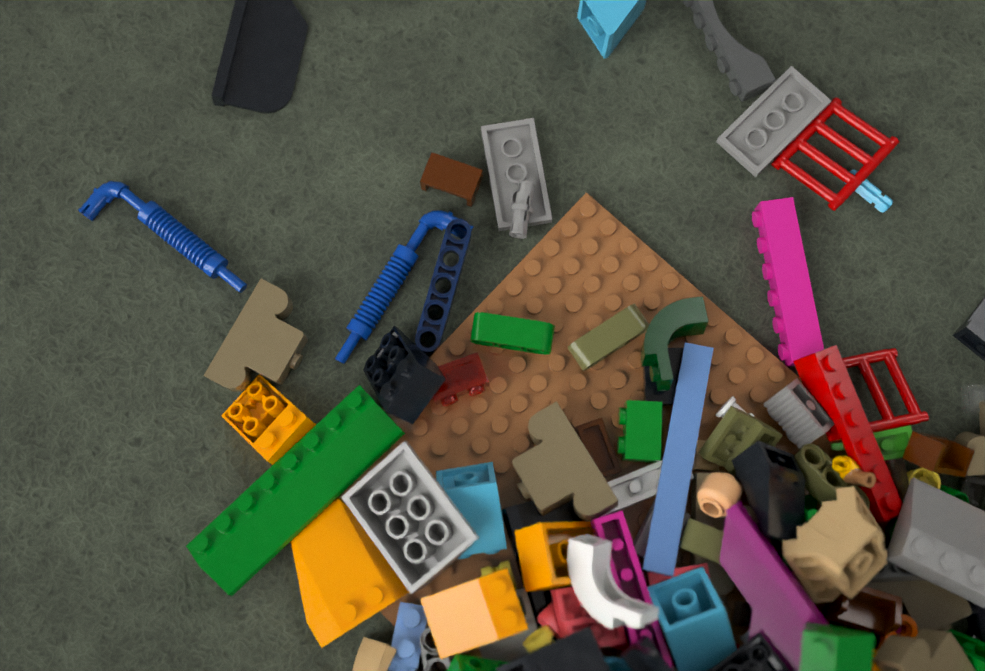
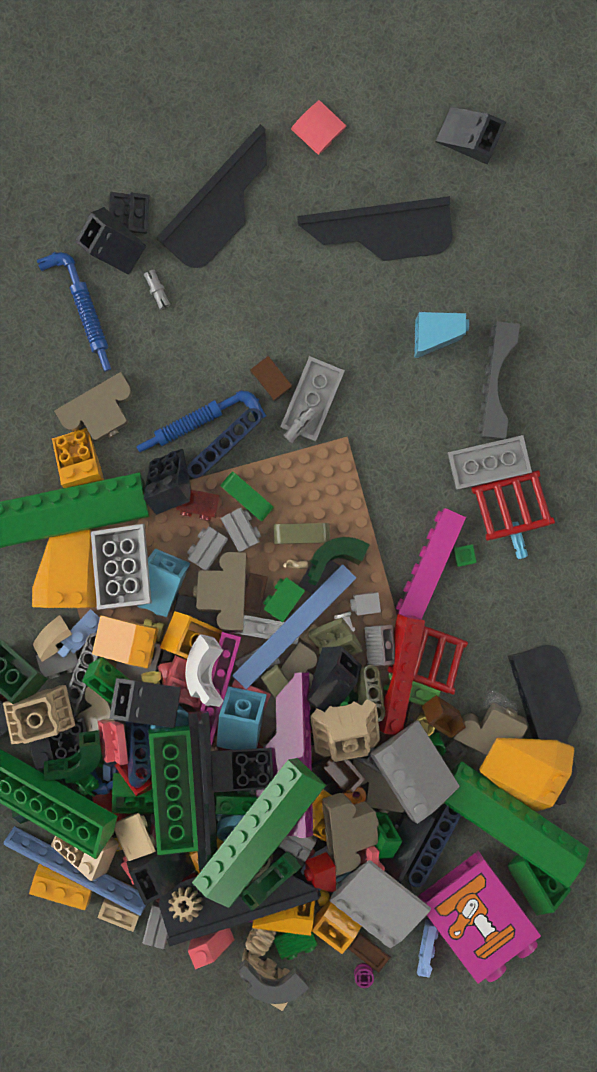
camera: 30 degrees right, 10 degrees up
(157, 133) = (110, 241): none -> black slope
(171, 89) = (137, 210): none -> black slope
(248, 159) = (157, 289): none -> light grey pin
(504, 427) = (207, 548): none -> light grey brick
(531, 378) = (240, 529): none -> light grey brick
(626, 381) = (297, 565): none -> tan piece
(718, 494) = (301, 661): light nougat head -> none
(747, 371) = (365, 603): none -> light grey brick
(820, 246) = (464, 555): none -> green plate
(852, 473) = (384, 695): arm -> none

